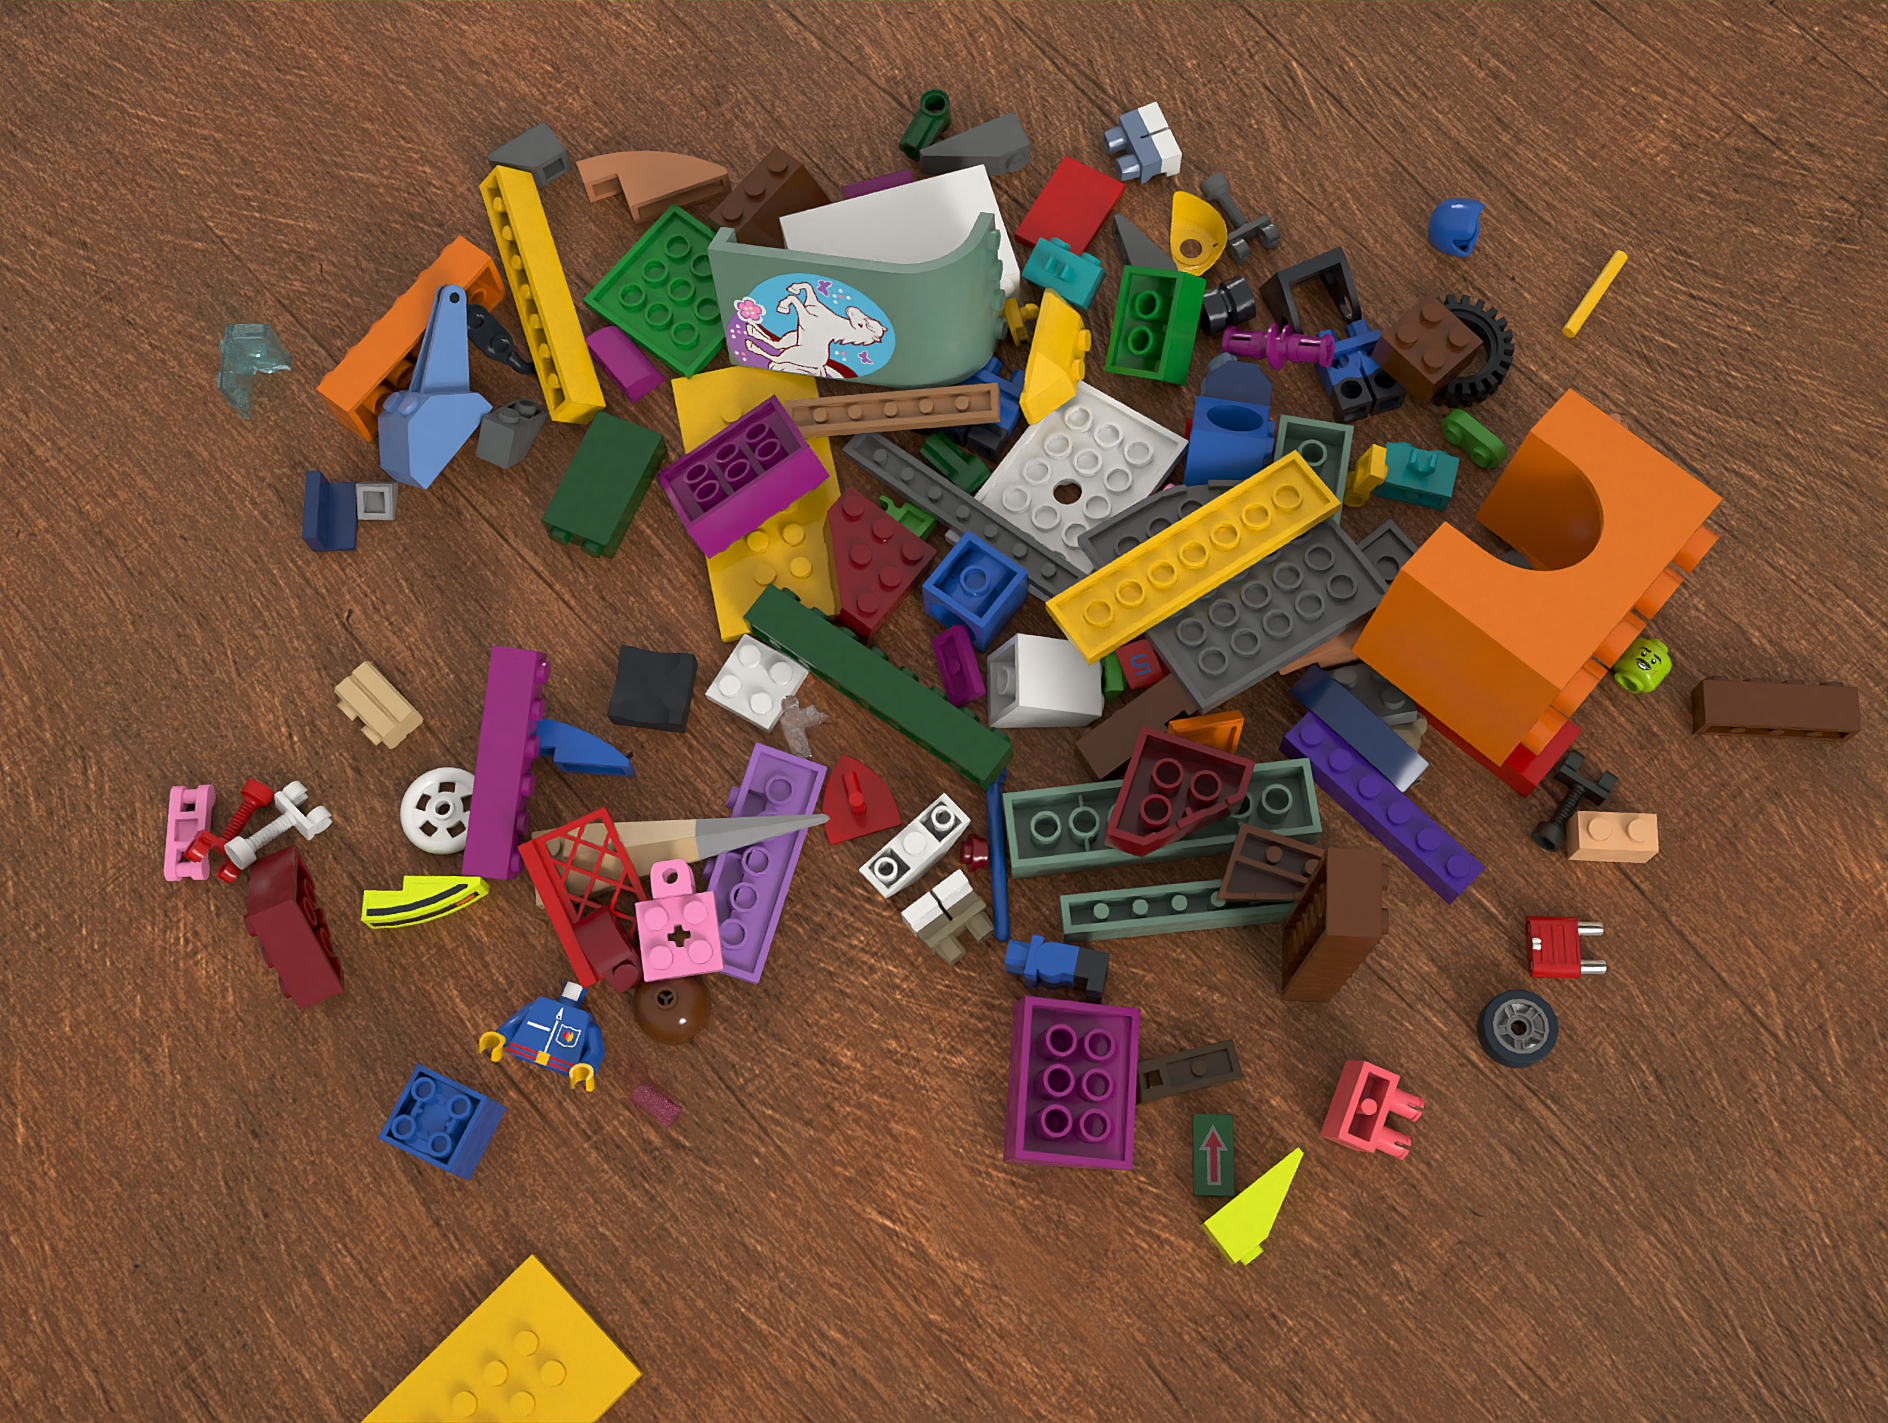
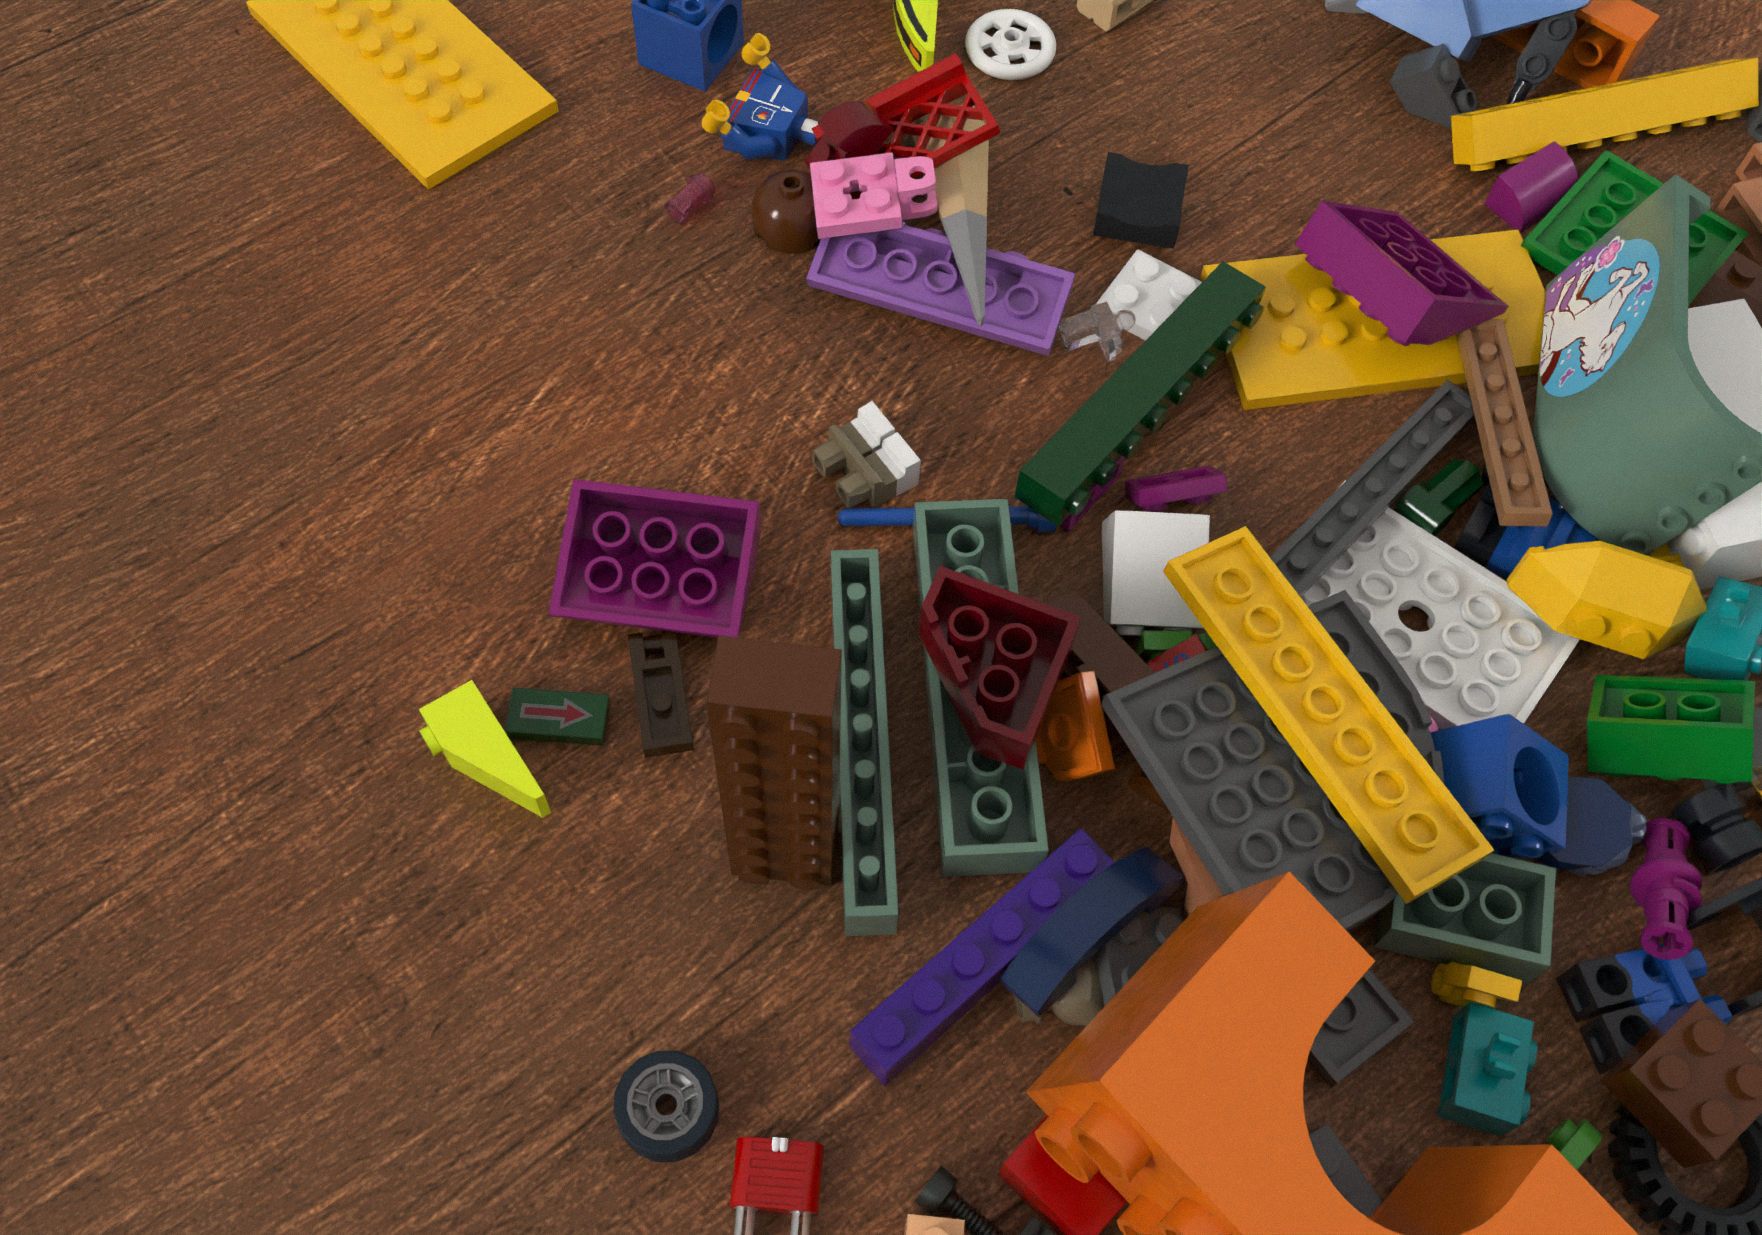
camera: 85 degrees right, 10 degrees down
(505, 763) = (1066, 61): magenta brick -> none
(580, 751) = (1074, 134): blue slope -> none
(604, 485) = (1378, 165): dark green brick -> none
(857, 802) = (1011, 389): red shield -> none
(870, 563) = (1295, 392): dark red brick -> none
(910, 517) = (1357, 442): bright green plate -> none
(916, 847) = (946, 422): white slope -> none
(974, 852) = (944, 487): dark red plate -> none
(976, 590) = (1268, 484): blue brick -> none
(1059, 966) = (786, 578): blue hips -> none
(1266, 867) = (887, 780): reddish brown wedge -> none
(1361, 1107) = (570, 874): coral brick -> none

